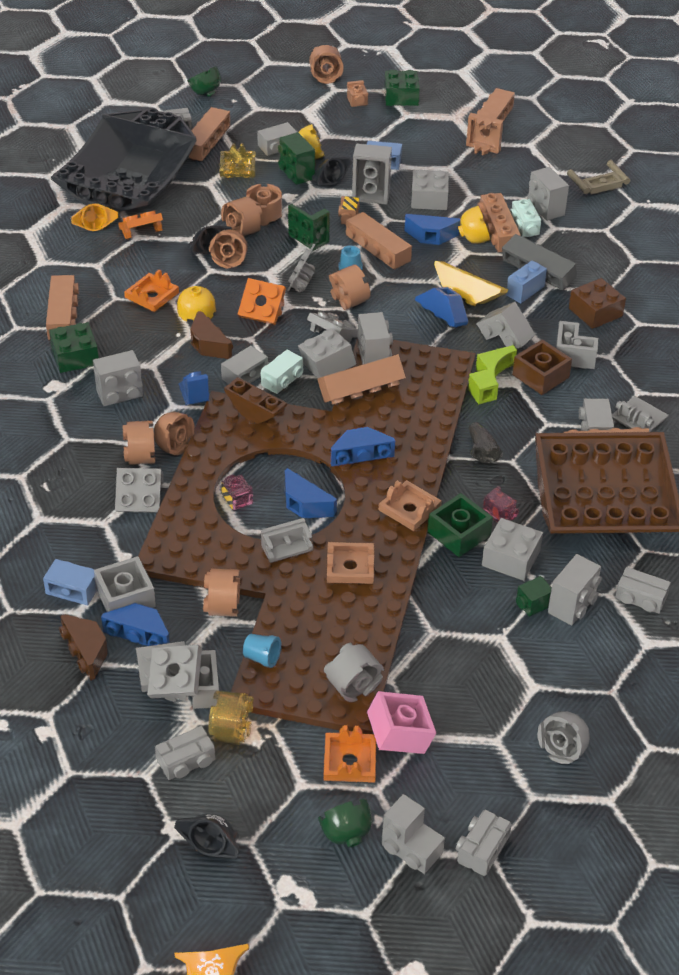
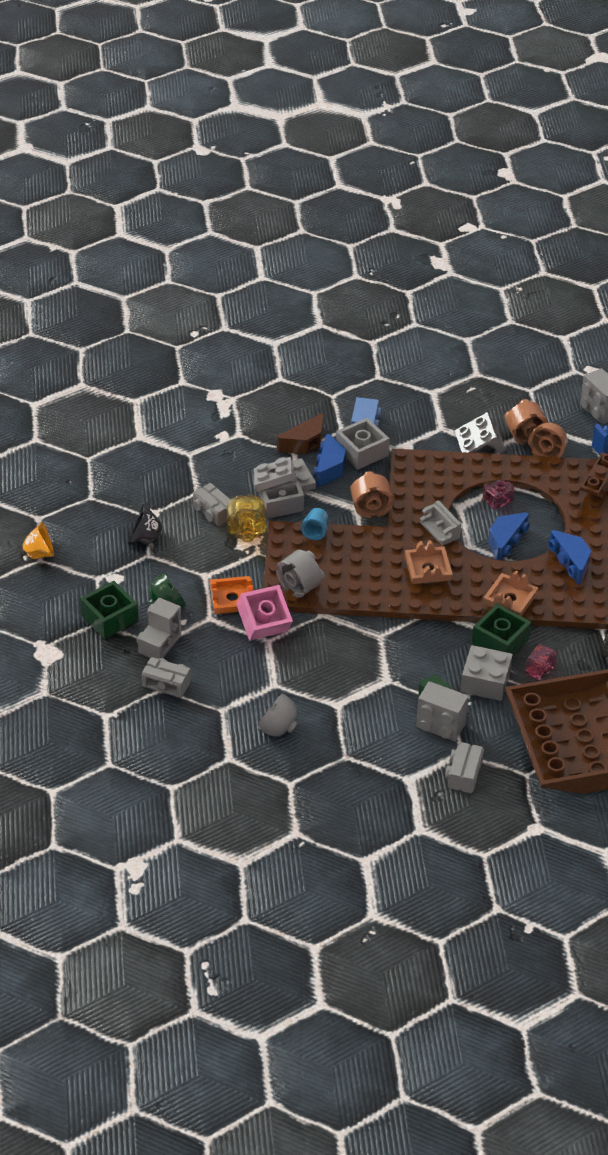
camera: 80 degrees right, 0 degrees up
(363, 888) = (109, 609): none -> dark green brick

